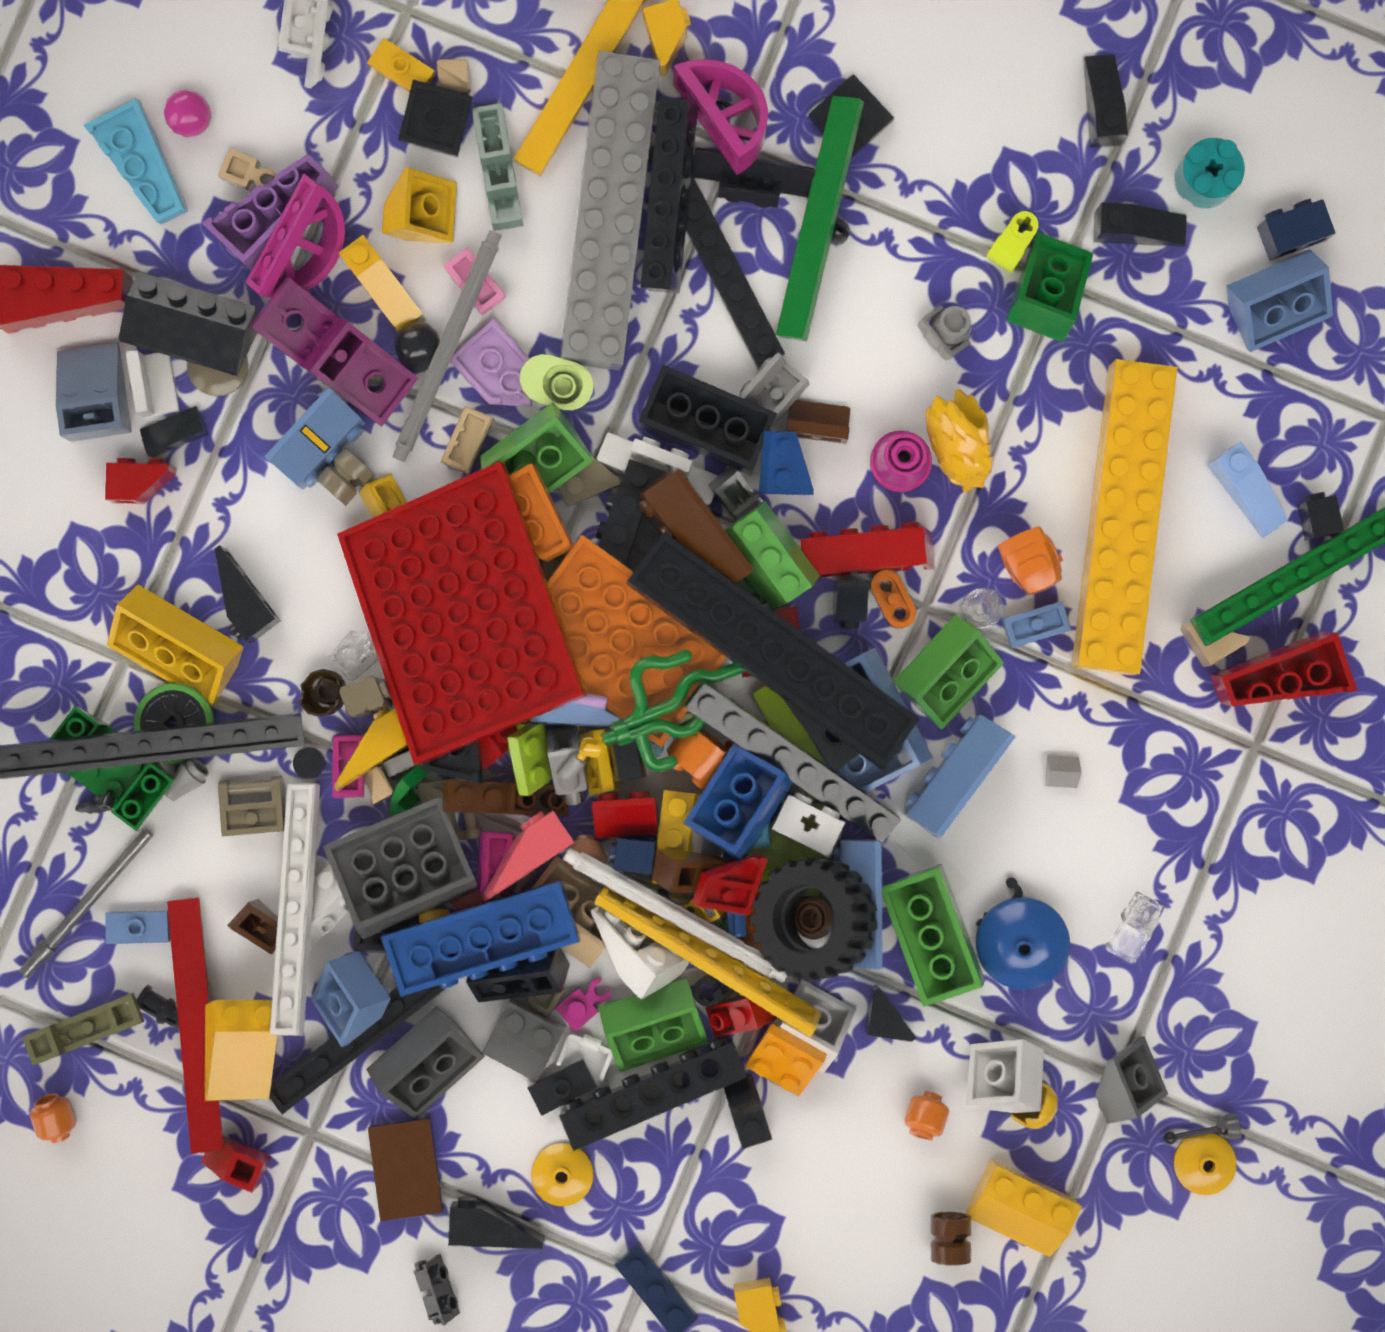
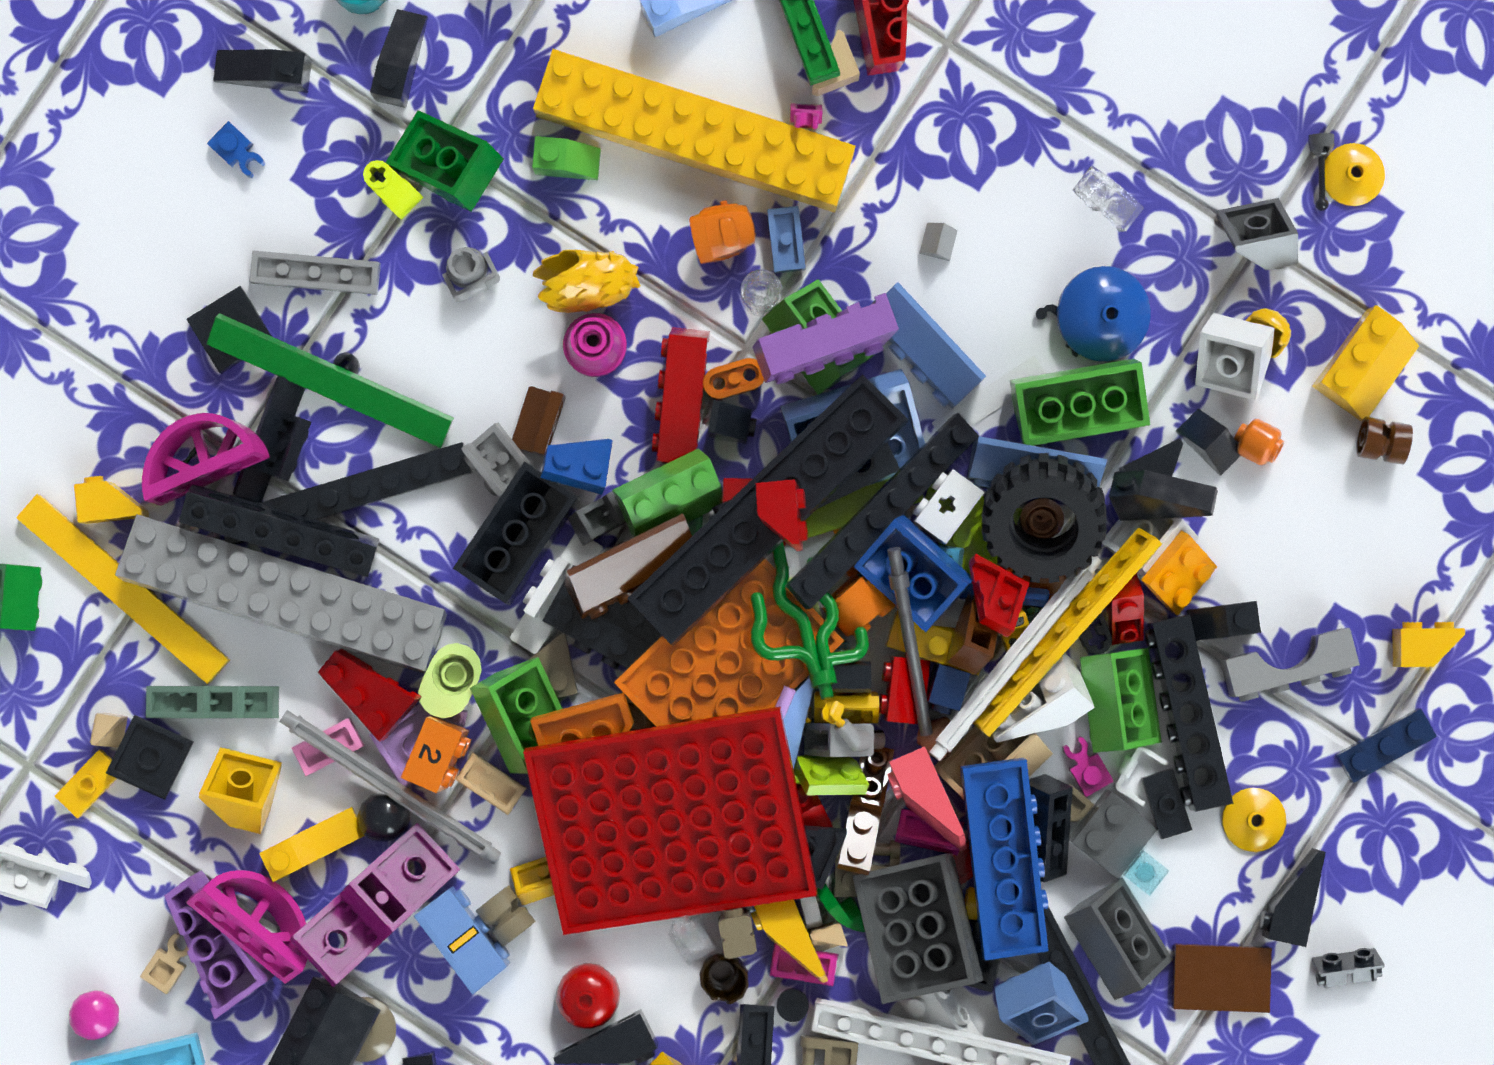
camera: 80 degrees left, 0 degrees up
(284, 568) = (588, 996): none -> red cylinder
(484, 381) = (436, 754): none -> orange brick
(492, 1078) = (1146, 872): none -> clear light blue plate
(529, 310) = (371, 697): none -> red wing
(726, 789) = (899, 582): none -> flat silver bar
(733, 1218) = (1328, 653): none -> light grey arch
(775, 661) = (780, 510): none -> red slope
(855, 1025) = (1159, 496): none -> black slope
(919, 185) = (315, 272): none -> light grey plate
(919, 1068) = (1210, 441): none -> black slope
(945, 677) = (826, 341): none -> medium lavender wedge
(1024, 88) = (234, 147): none -> blue plate
(1073, 400) = (565, 158): none -> bright green slope
(1159, 621) = (806, 115): none -> dark pink plate

